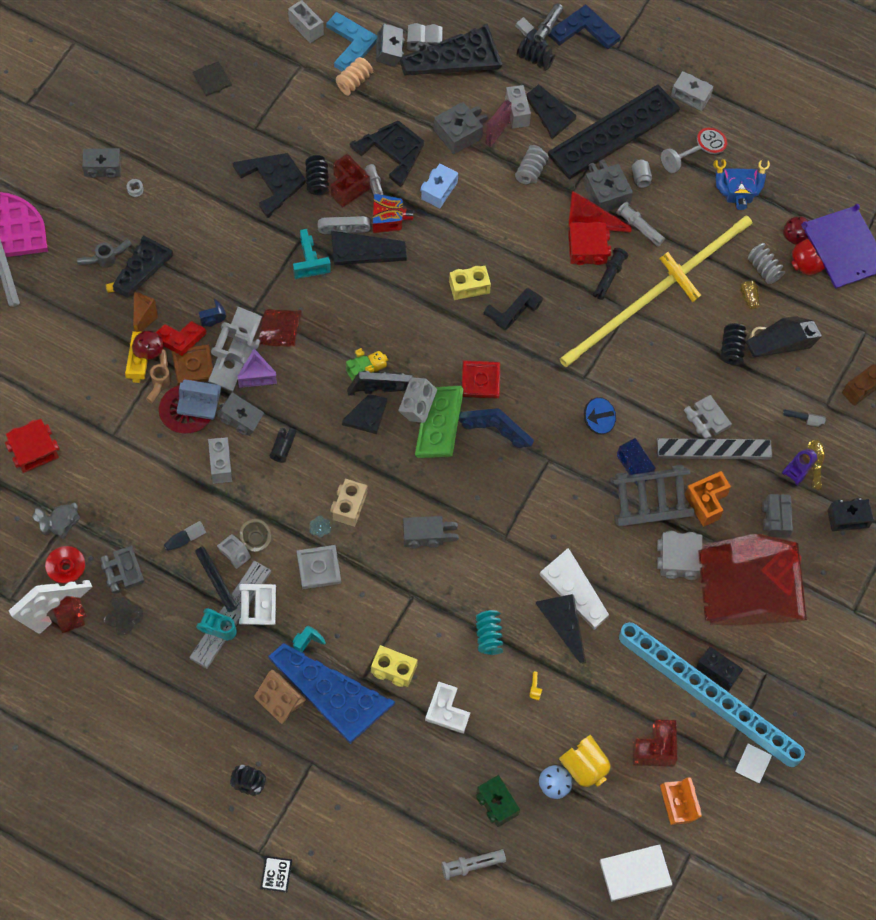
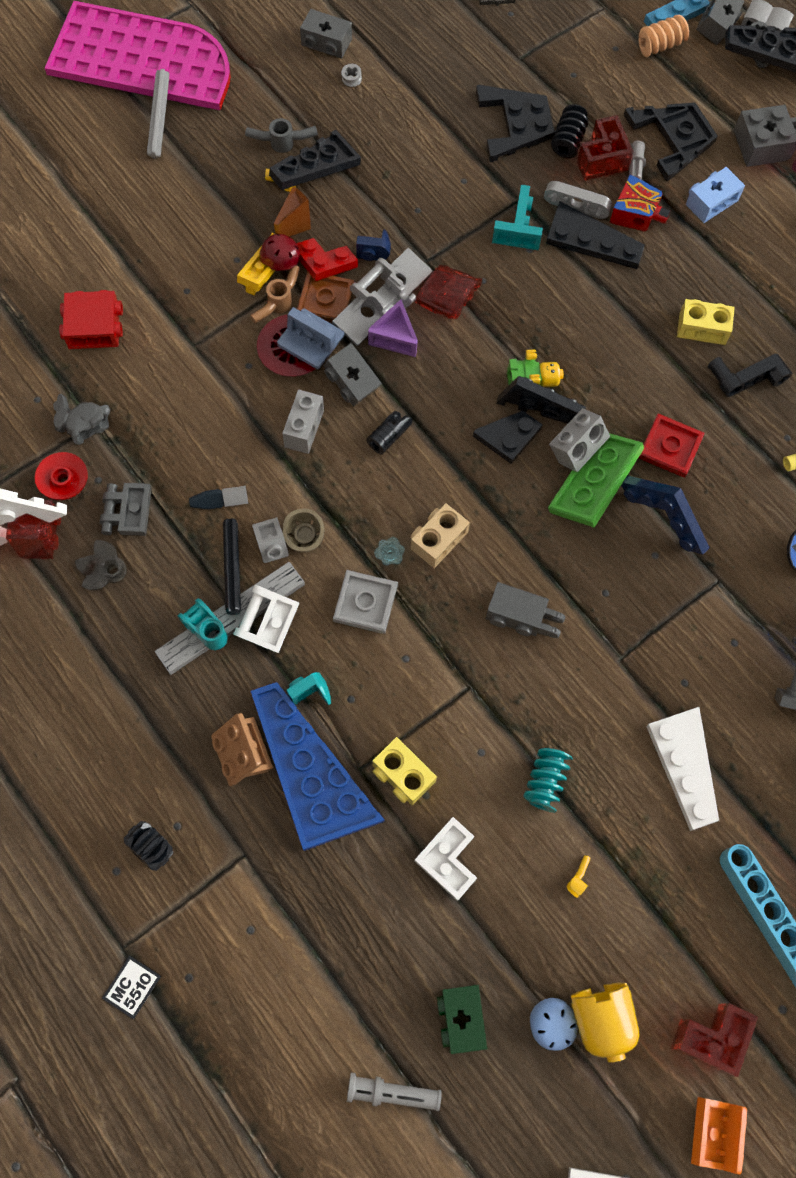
camera: 25 degrees right, 5 degrees up
(563, 617) = (655, 799): black wing -> none

